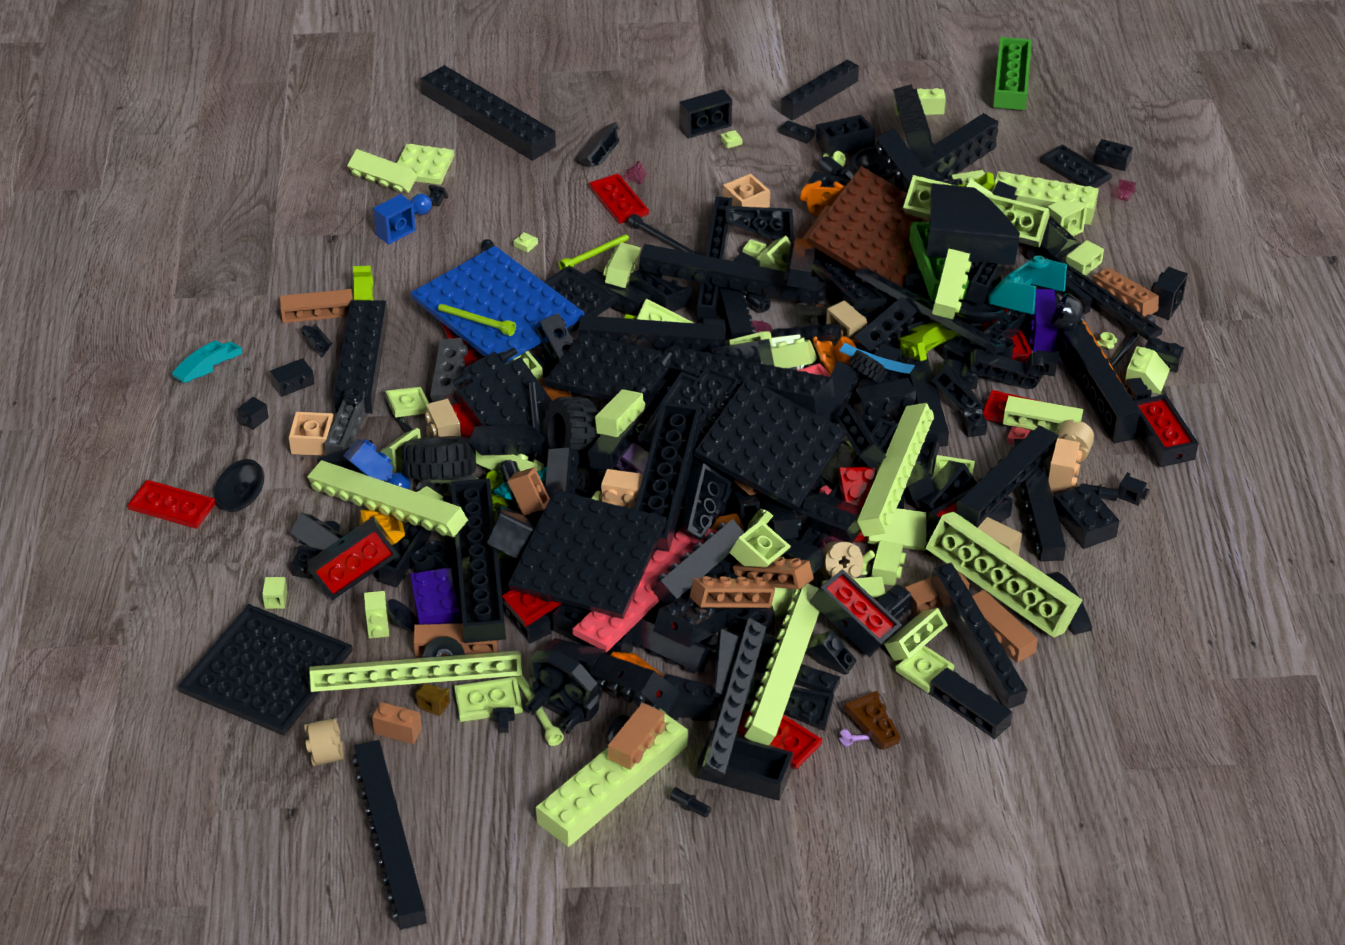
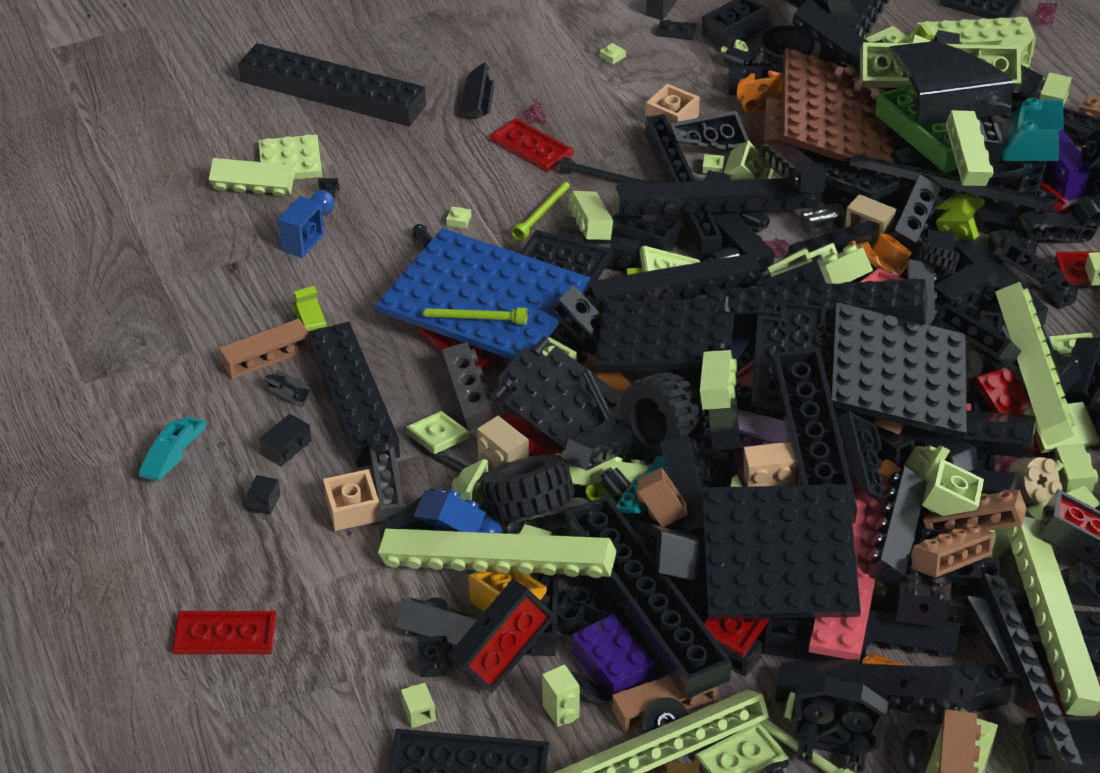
camera: 20 degrees left, 0 degrees up
(239, 485) = (294, 579): black dish -> none
(705, 113) = (575, 32): black brick -> none
(888, 364) = (974, 250): dark azure sticker -> none

